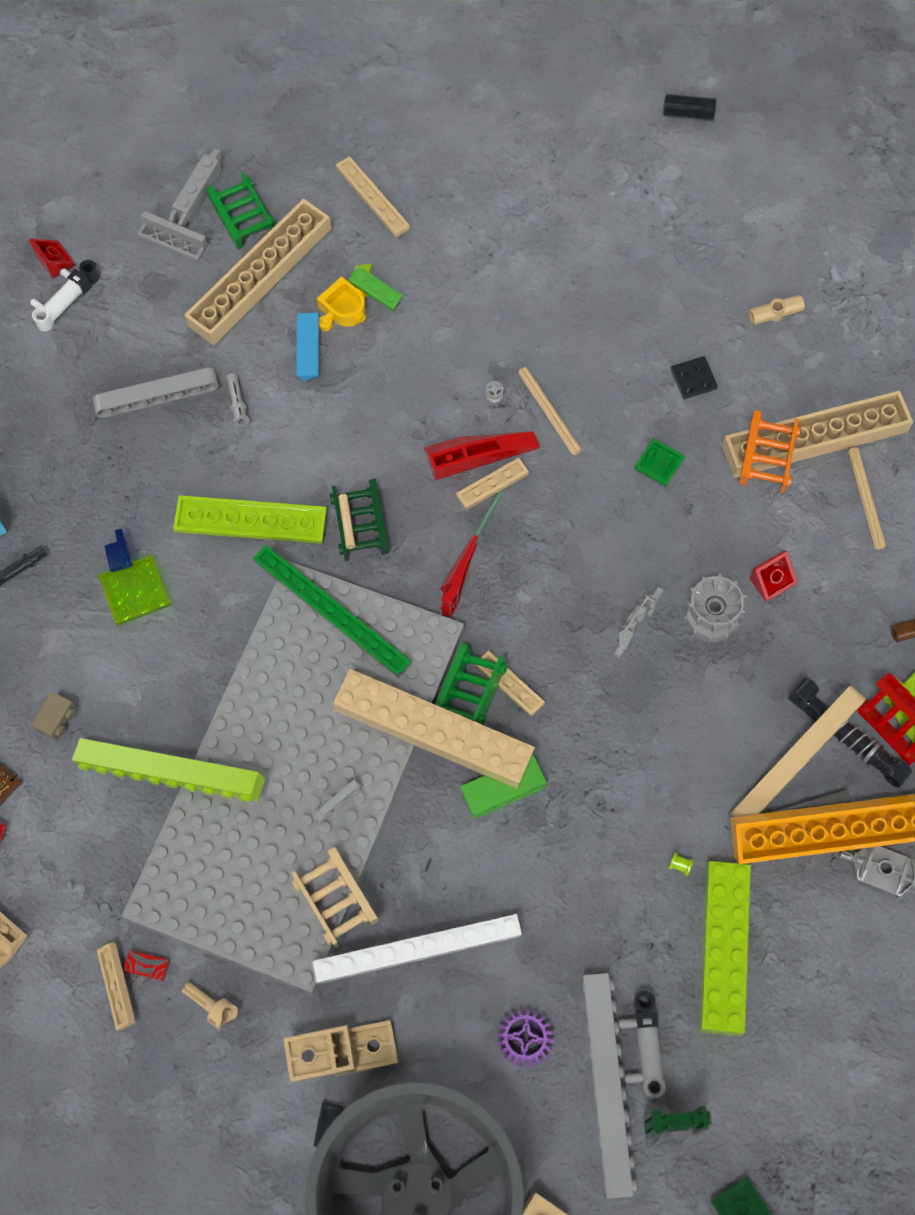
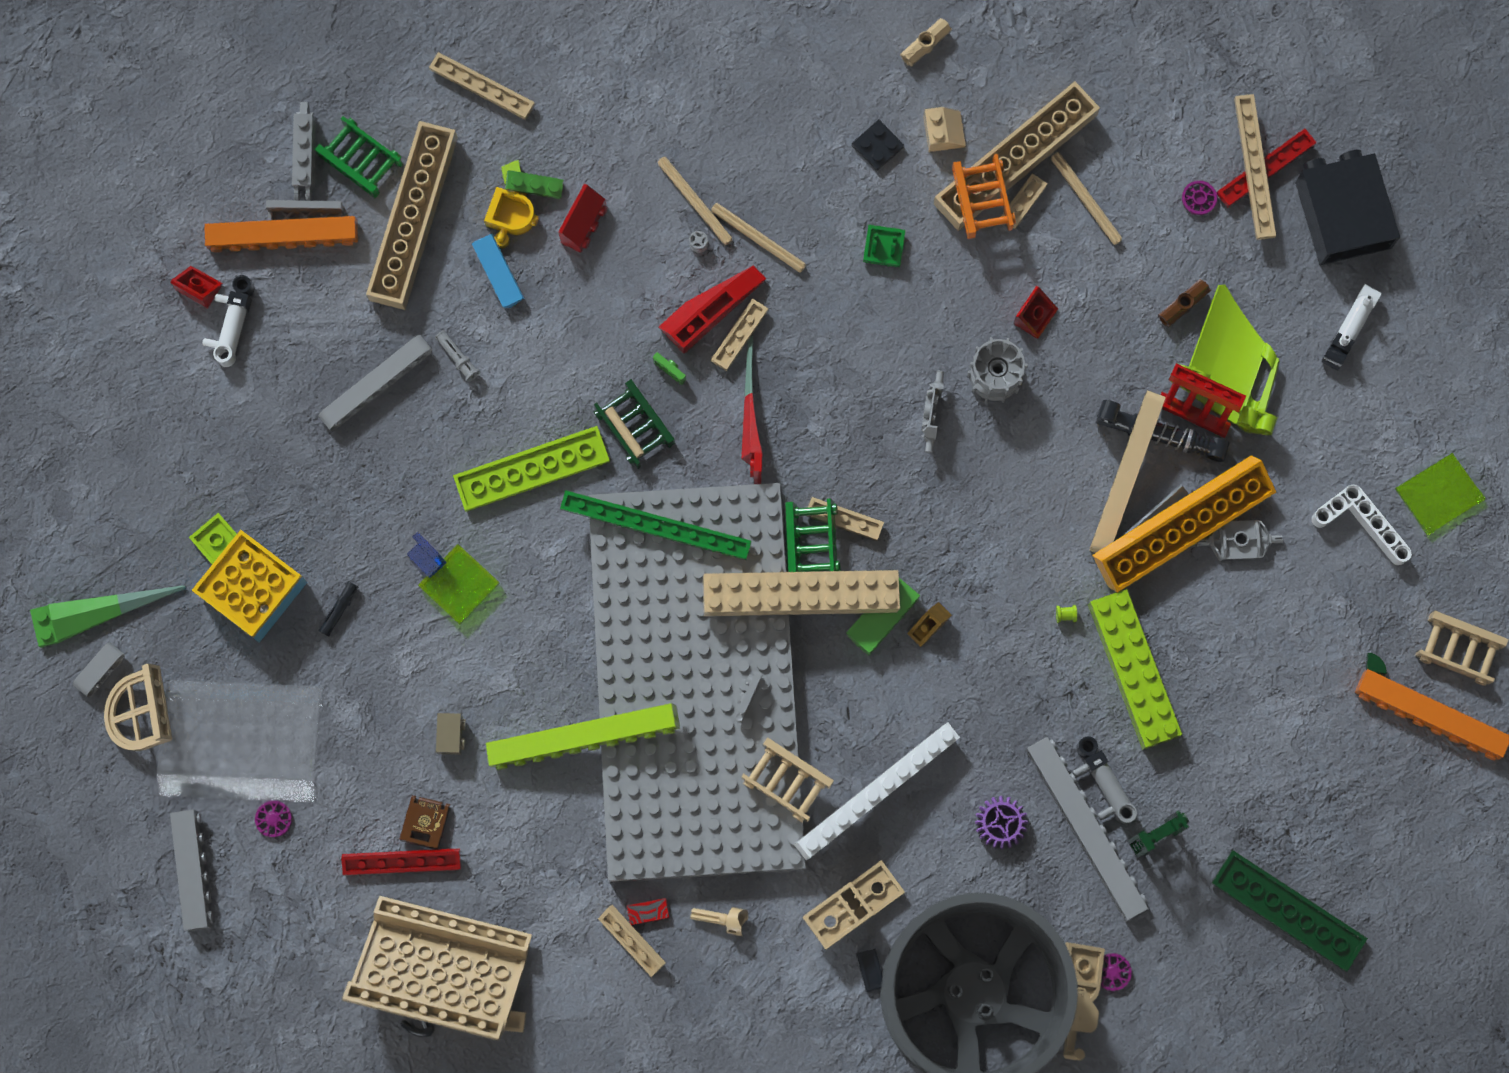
camera: 25 degrees left, 10 degrees up
(144, 243) = (281, 233): none -> orange brick
(401, 330) = (582, 219): none -> red slope
(416, 485) = (670, 368): none -> bright green plate
(508, 359) = (695, 201): none -> tan axle
(544, 814) = (929, 624): none -> pearl gold slope
(760, 386) = (943, 129): none -> tan slope
(809, 475) = (1026, 198): none -> tan plate

